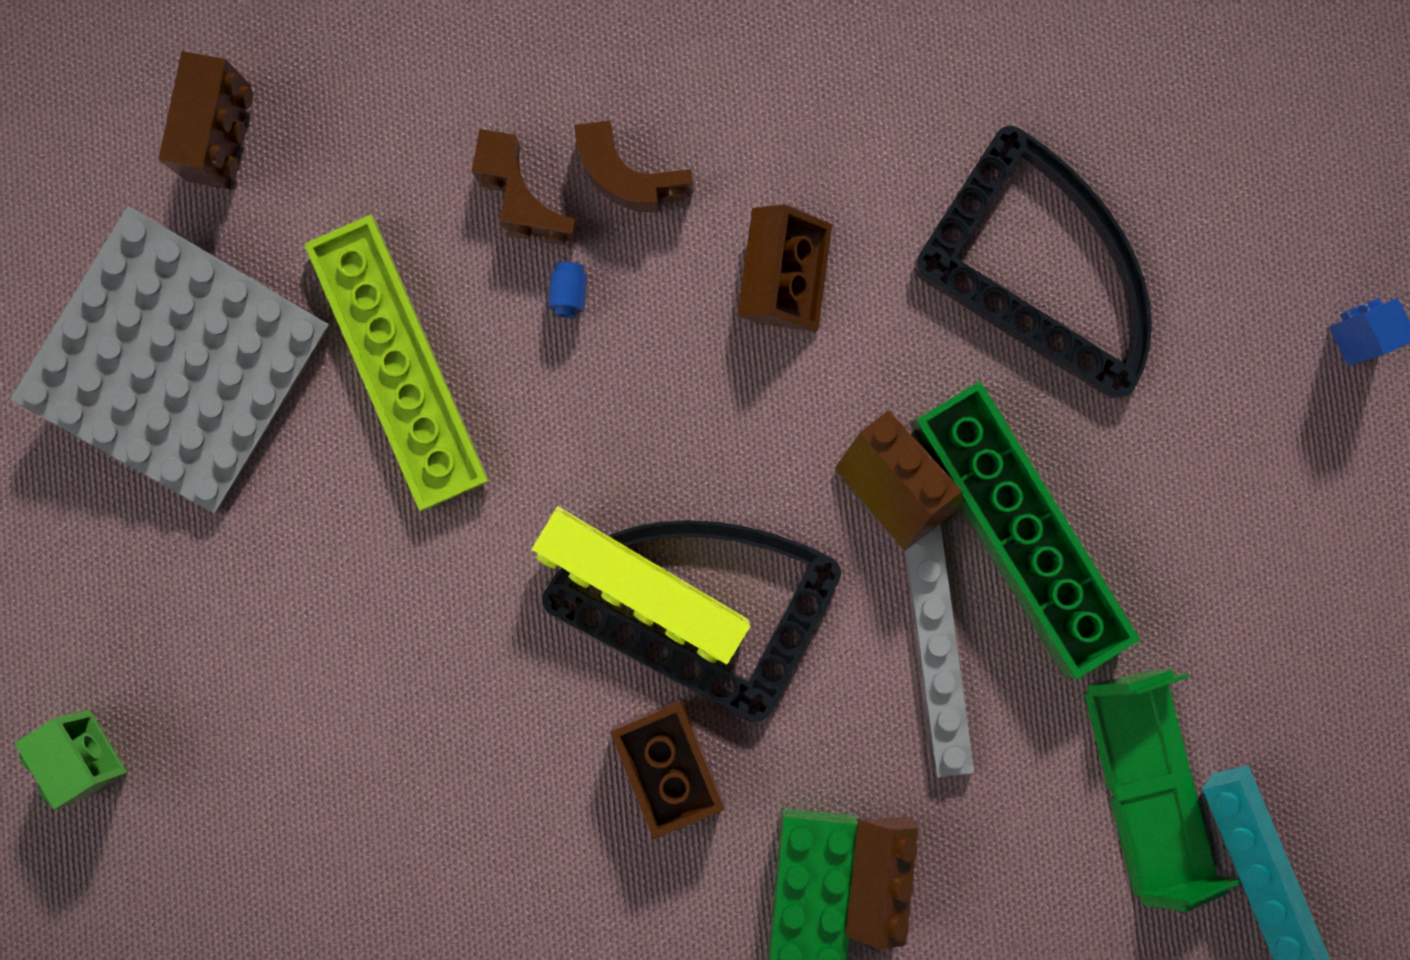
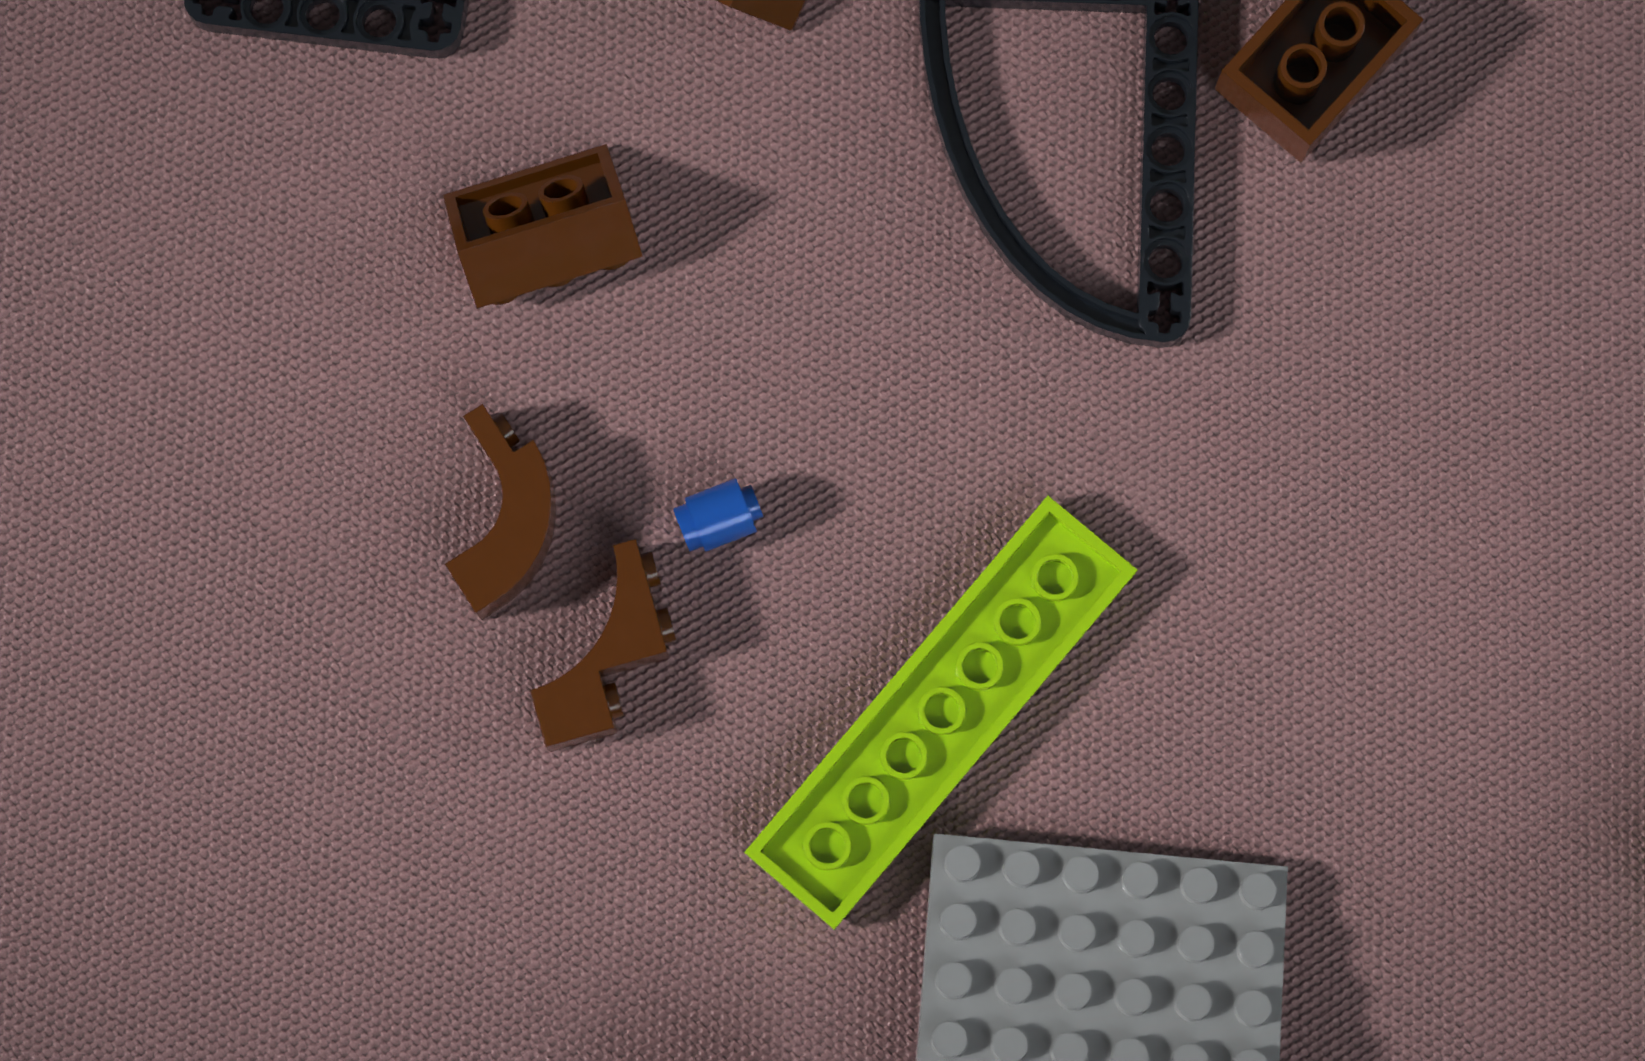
camera: 115 degrees left, 5 degrees down
(641, 586) = (1089, 207): neon yellow brick -> none

